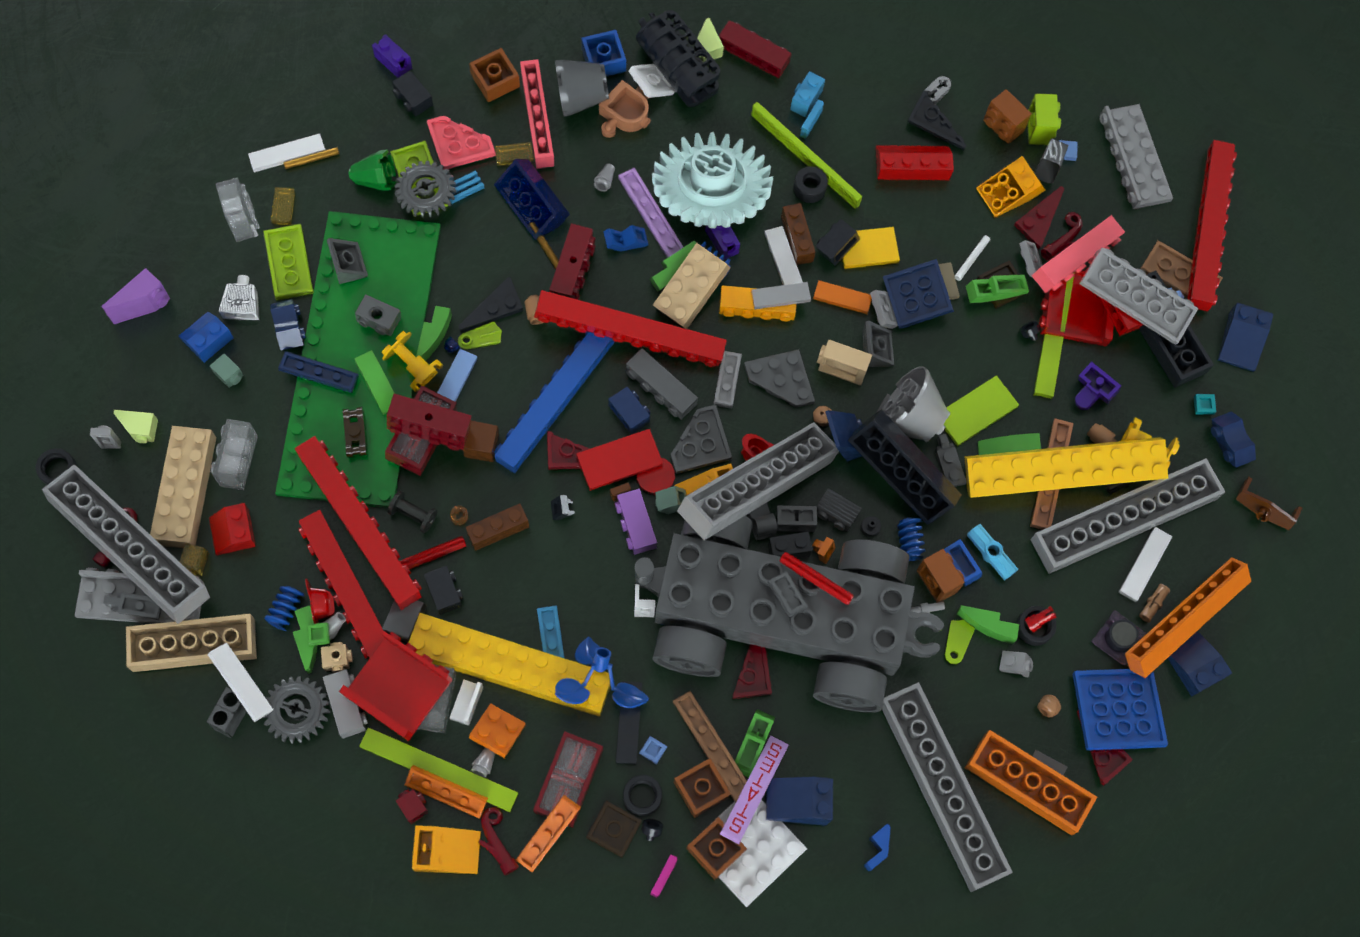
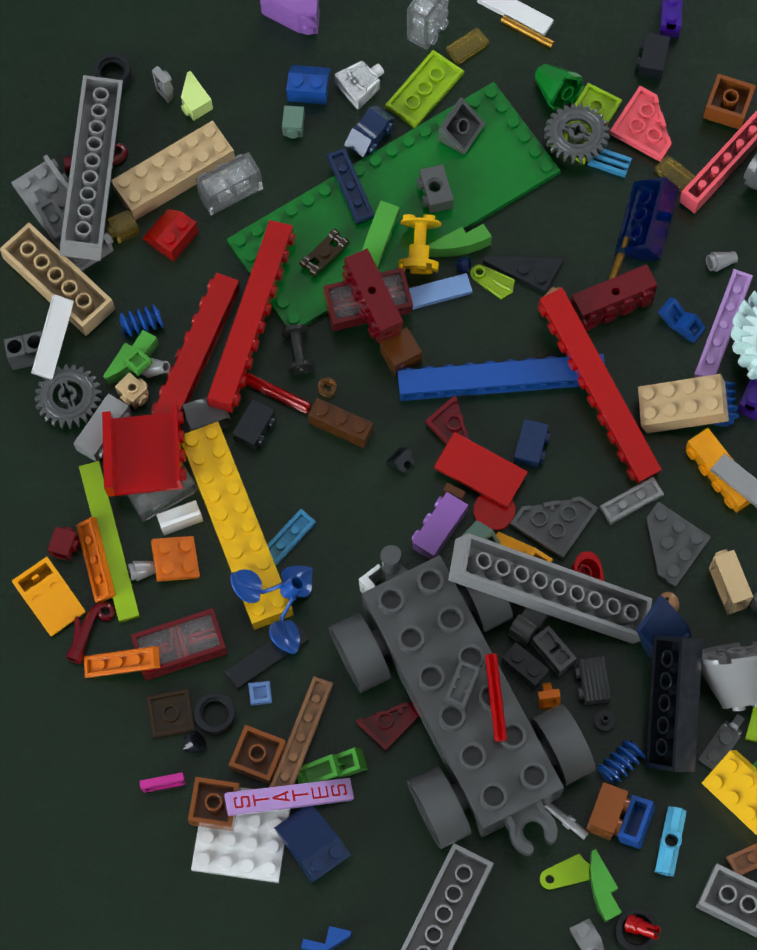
camera: 60 degrees right, 0 degrees up
(321, 602) = (165, 342): red piece -> none
(661, 384) = (577, 451): dark grey brick -> none
(670, 267) = (689, 371): bright green slope -> none

